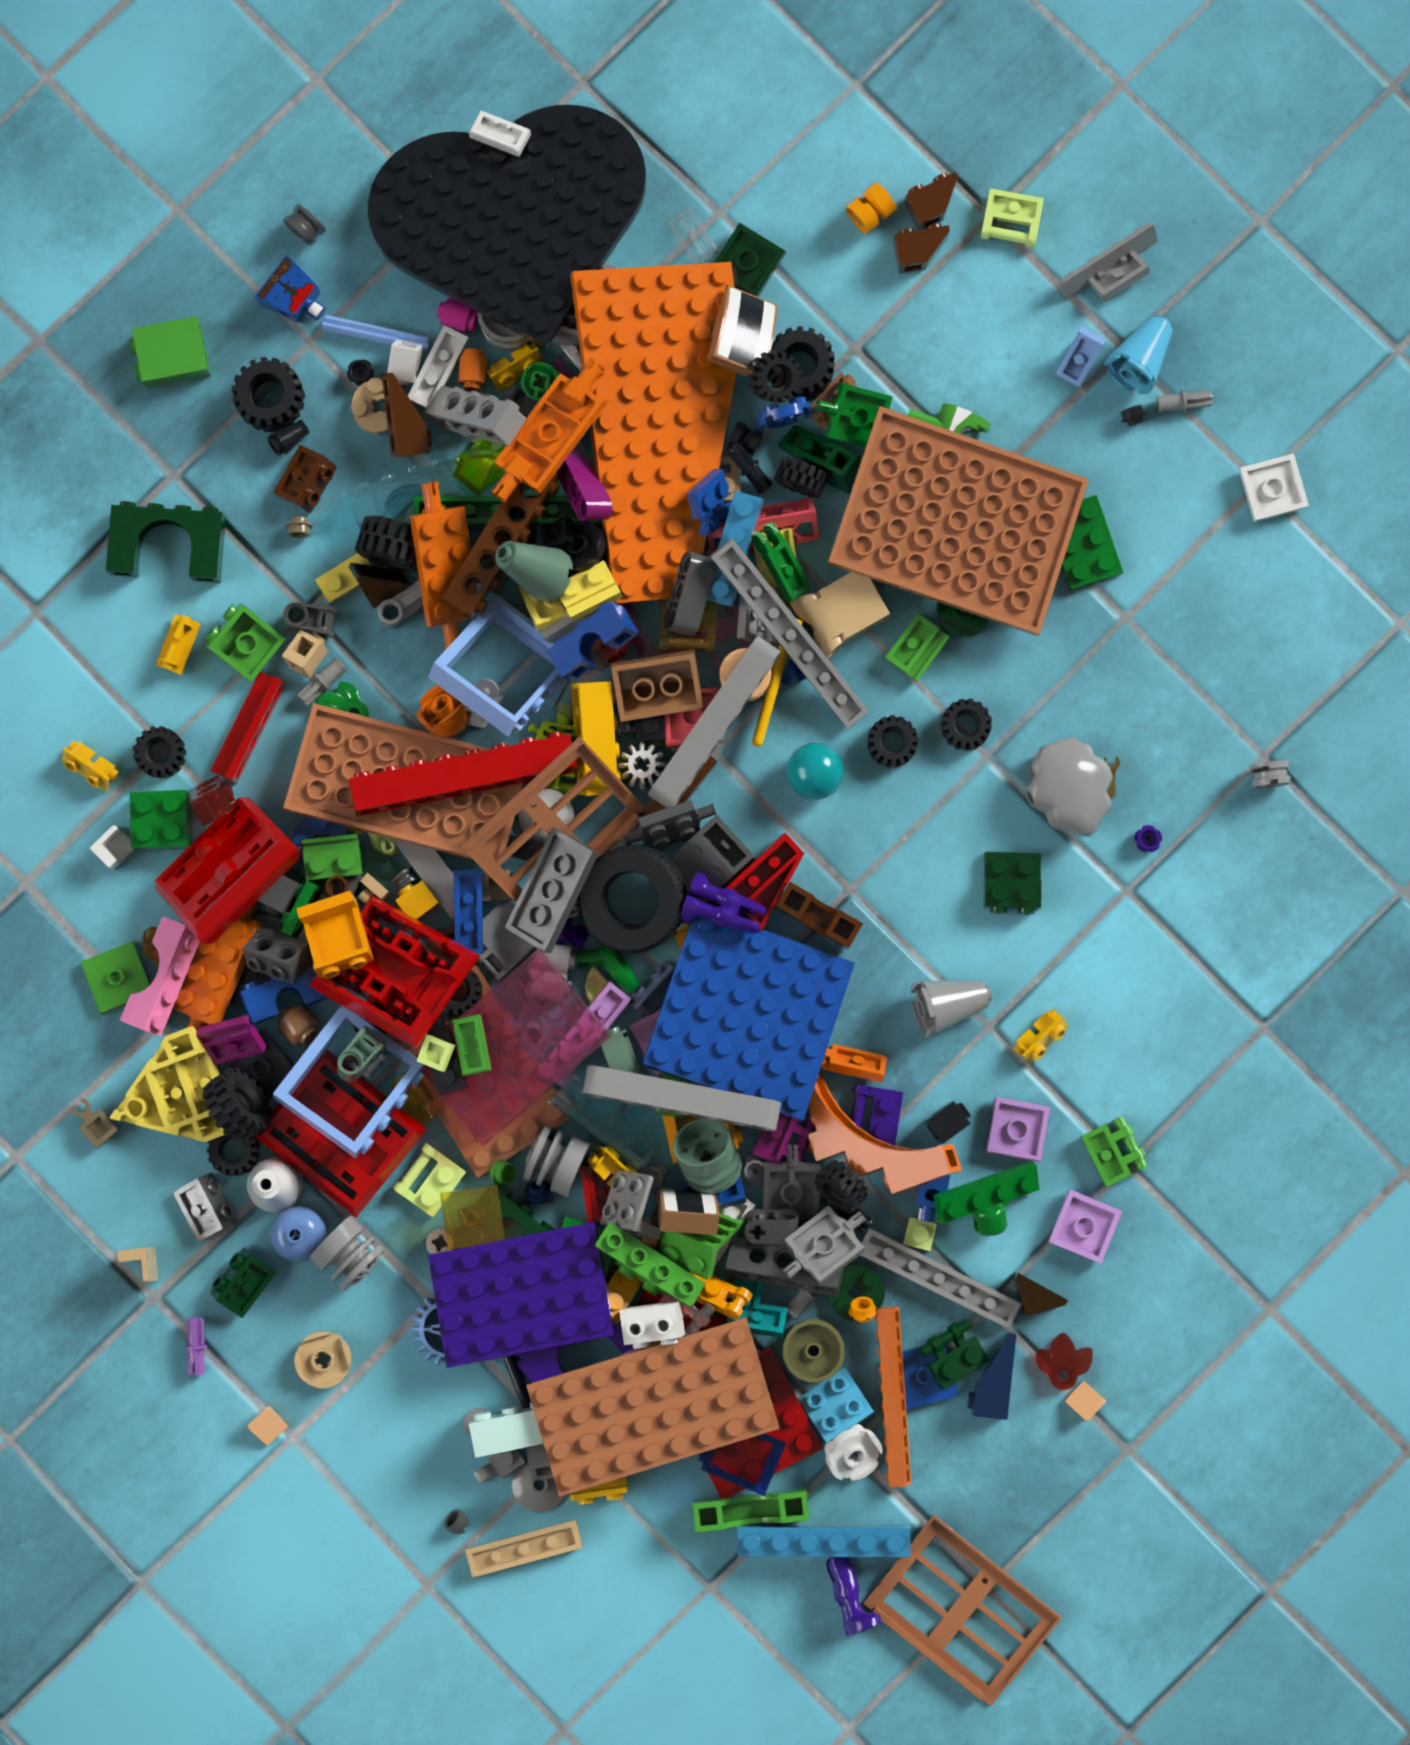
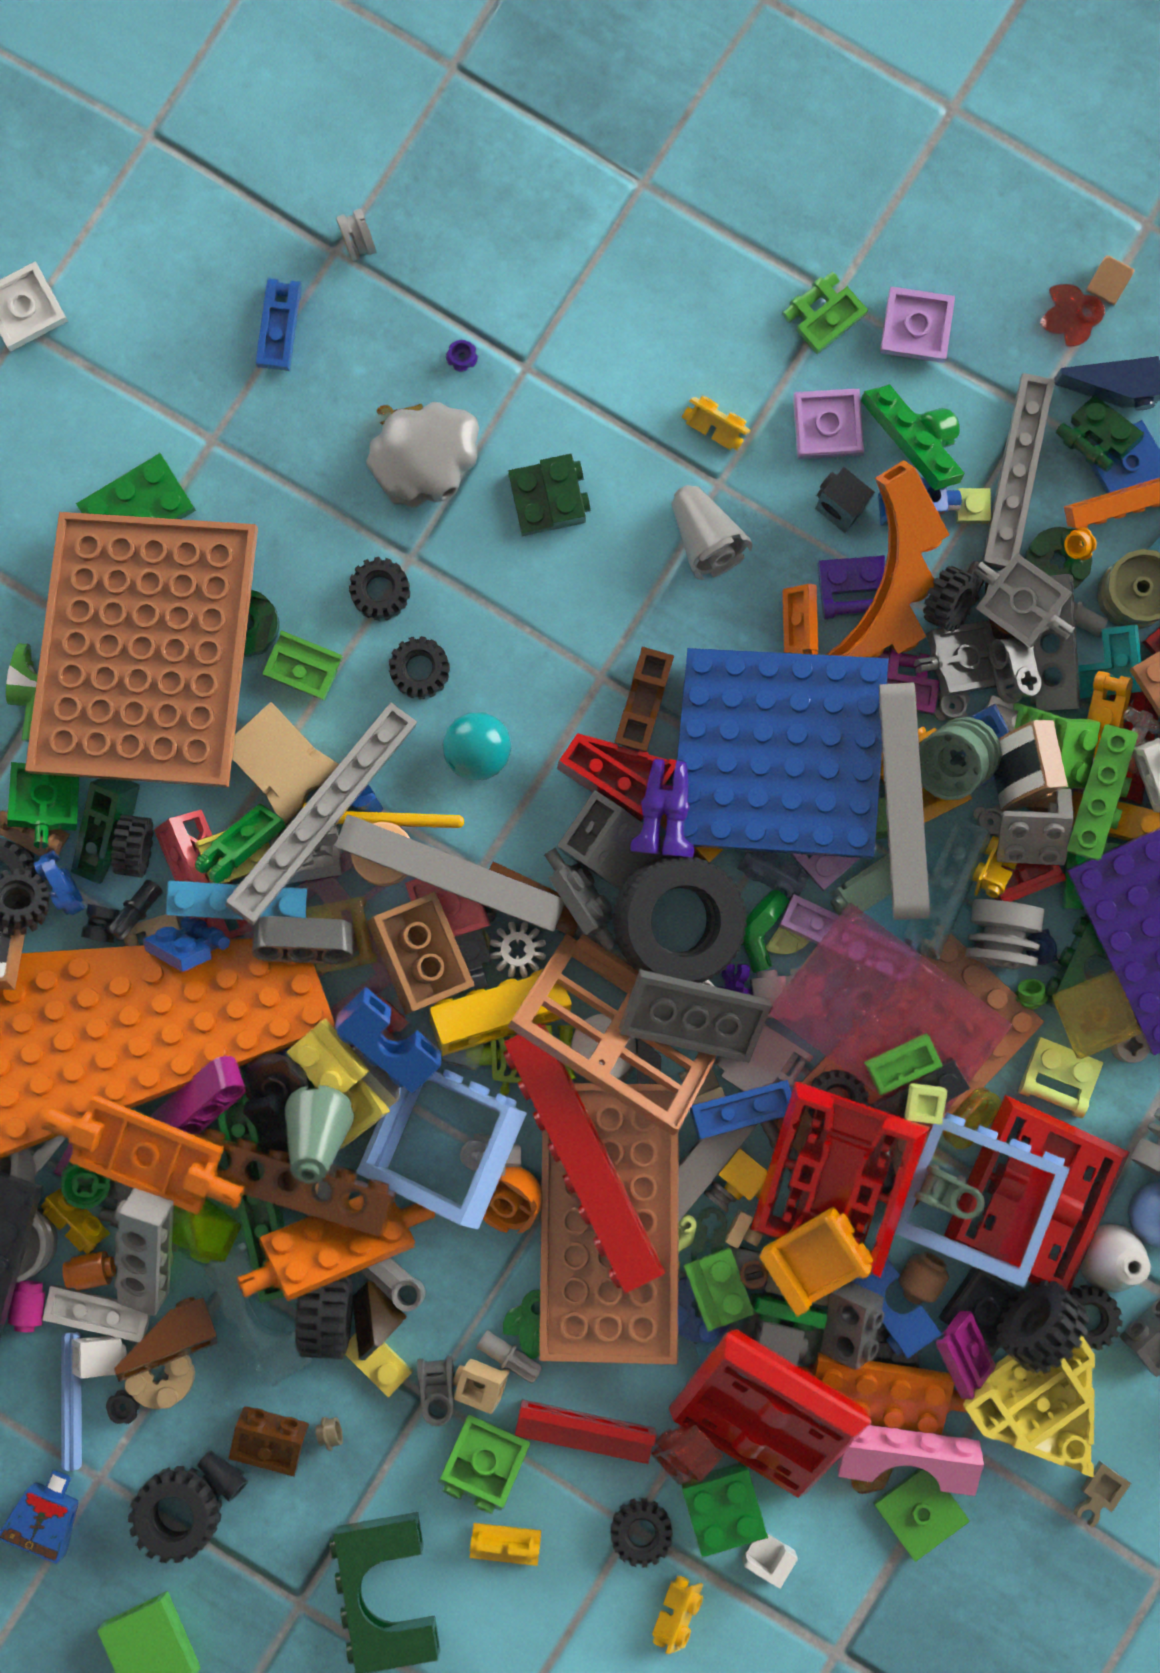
camera: 105 degrees left, 0 degrees up
(1036, 1297) = (1011, 358): dark brown slope -> none
(1209, 693) = (278, 325): none -> blue plate

